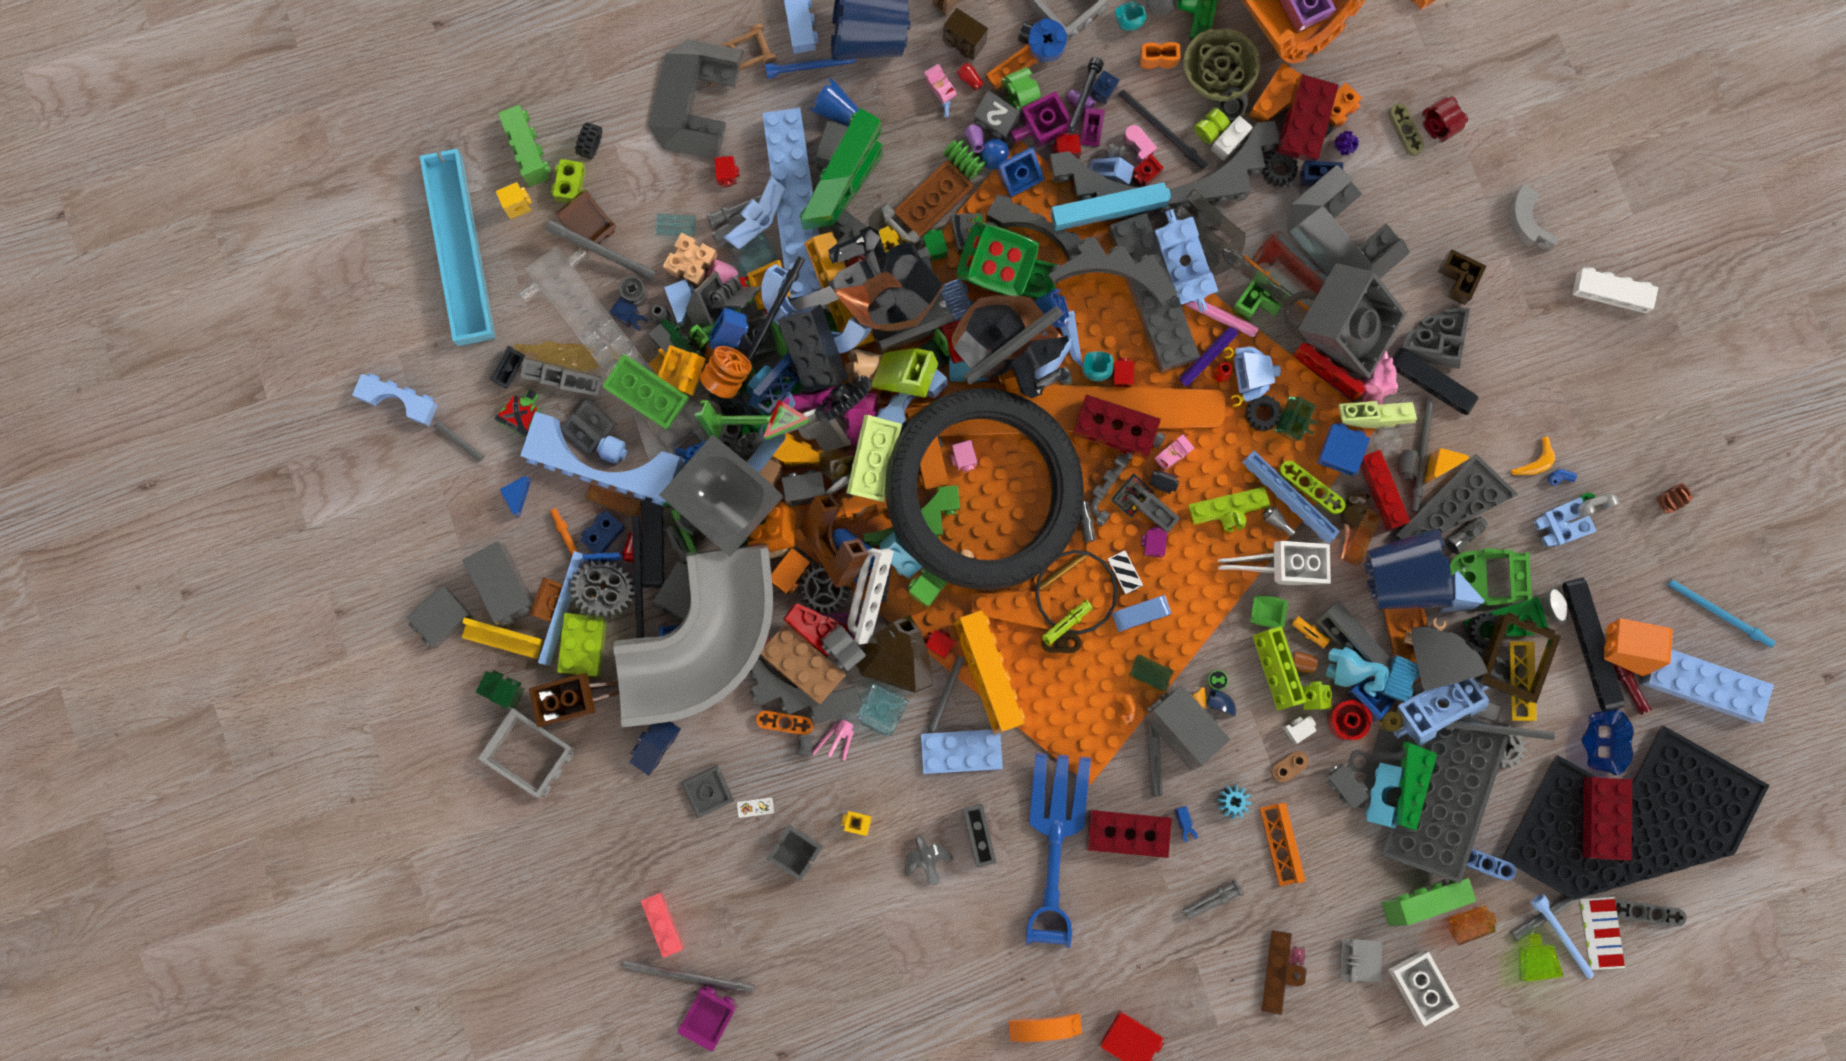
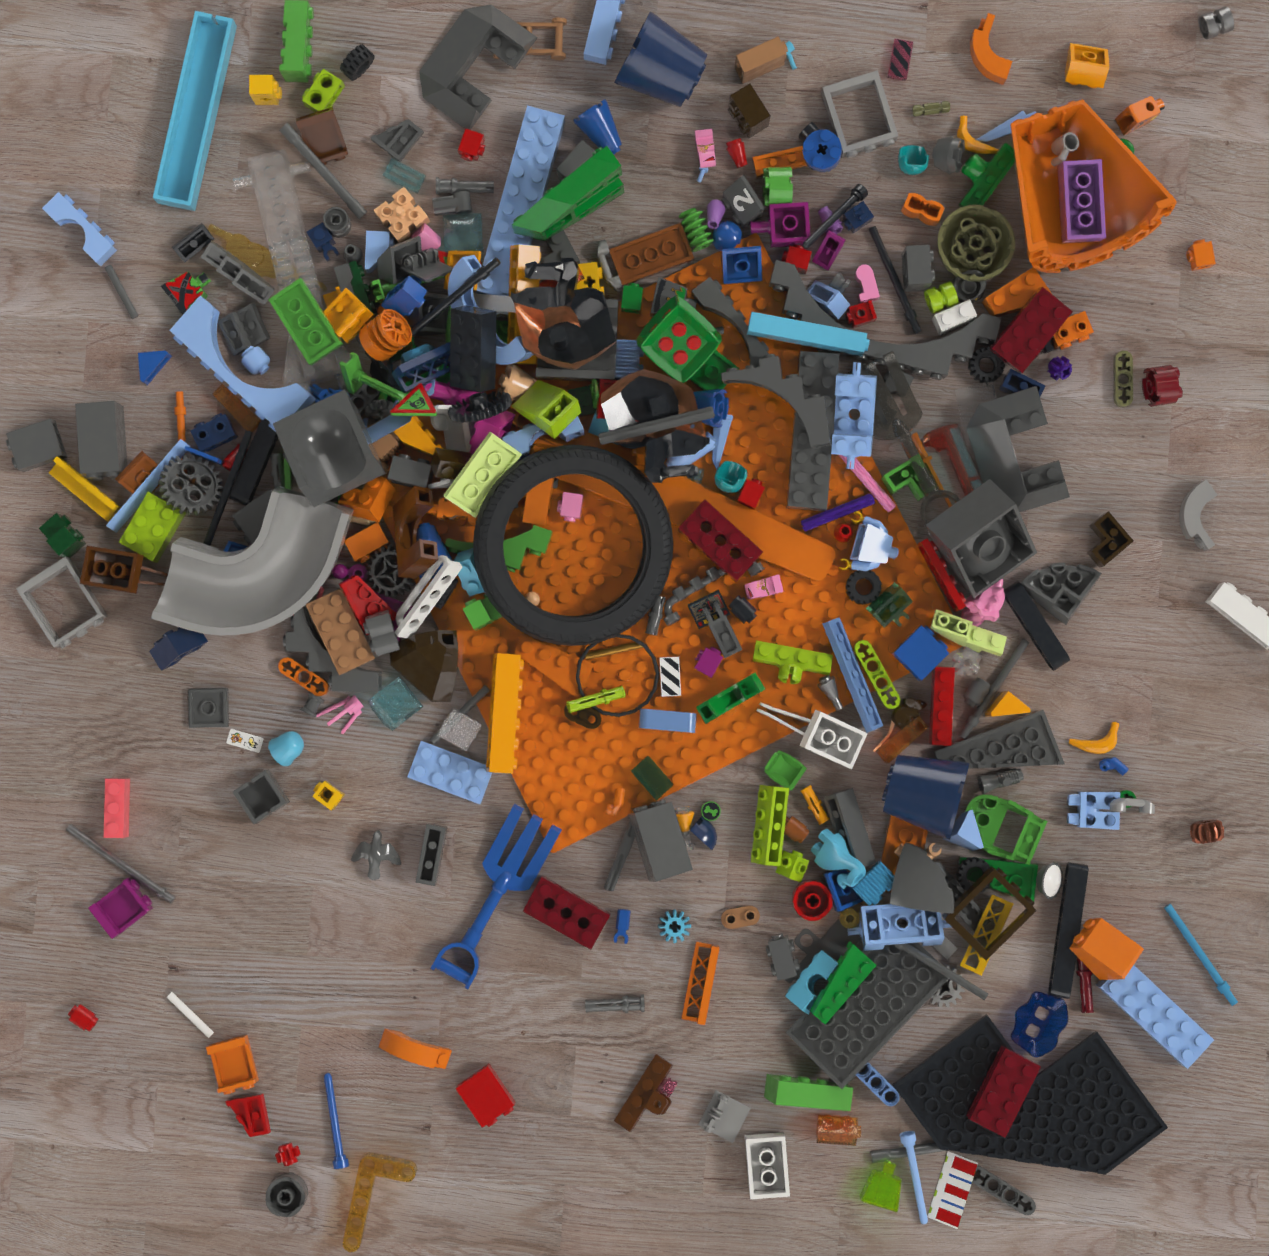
camera: 30 degrees right, 5 degrees up
(657, 194) = (399, 139): none -> dark grey wing
(757, 215) = (480, 200): light blue plate -> none
(773, 70) = (558, 68): blue piece -> none
(778, 608) = (340, 571): none -> magenta plate
(798, 796) = (286, 747): none -> medium azure hair
(939, 643) = (472, 666): red brick -> none
(952, 707) = (459, 729): none -> clear piece
(1179, 108) = (917, 268): none -> dark grey brick
(1190, 565) = (730, 698): none -> green arch
(1300, 729) = (764, 888): white brick -> none

